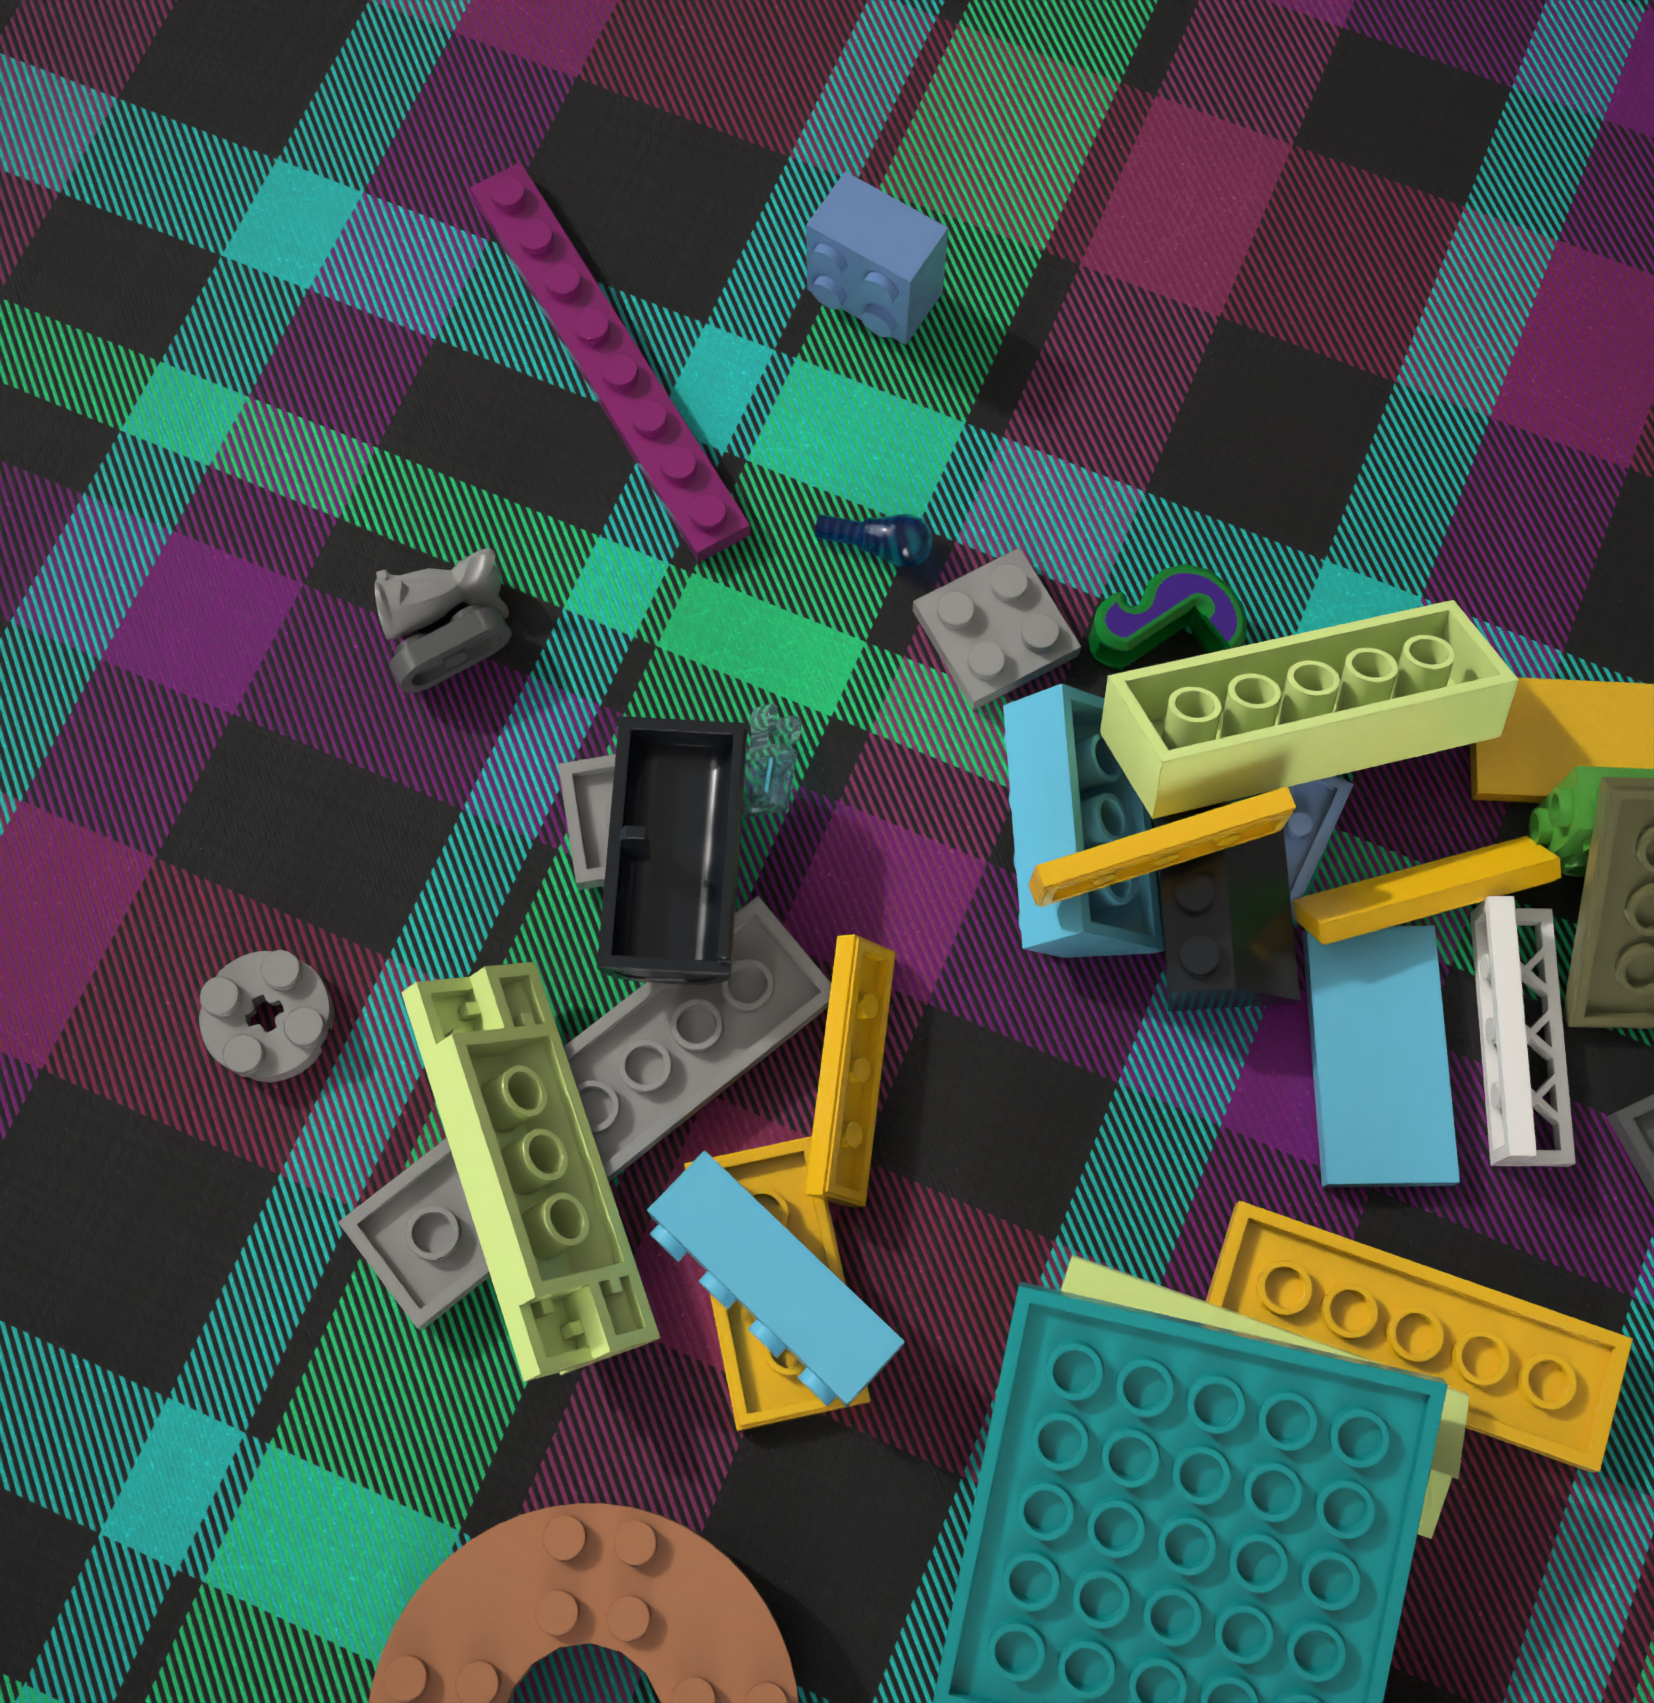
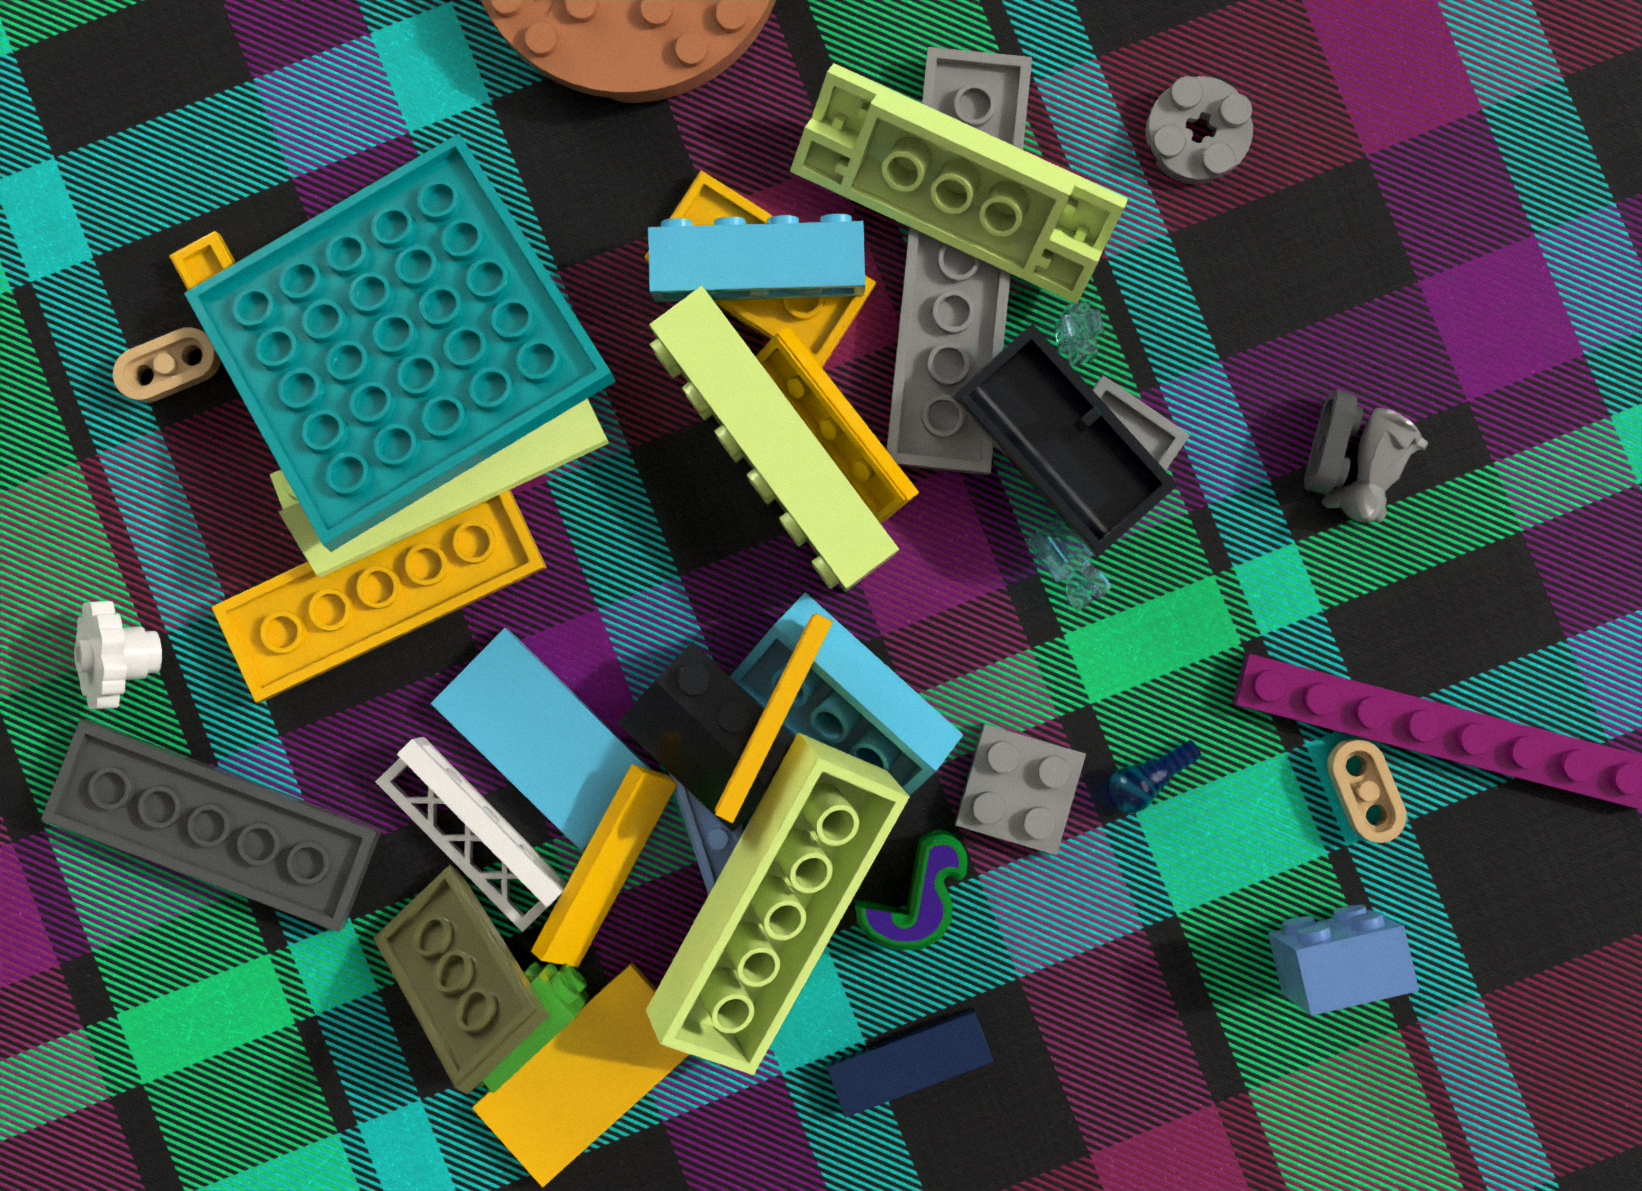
camera: 135 degrees right, 15 degrees up
(559, 937) = (1078, 332): none -> clear light blue plate
(716, 373) = (1367, 787): none -> tan plate
(924, 1098) = (772, 438): none -> yellowish green brick
(1303, 507) = (909, 1062): none -> dark blue tile

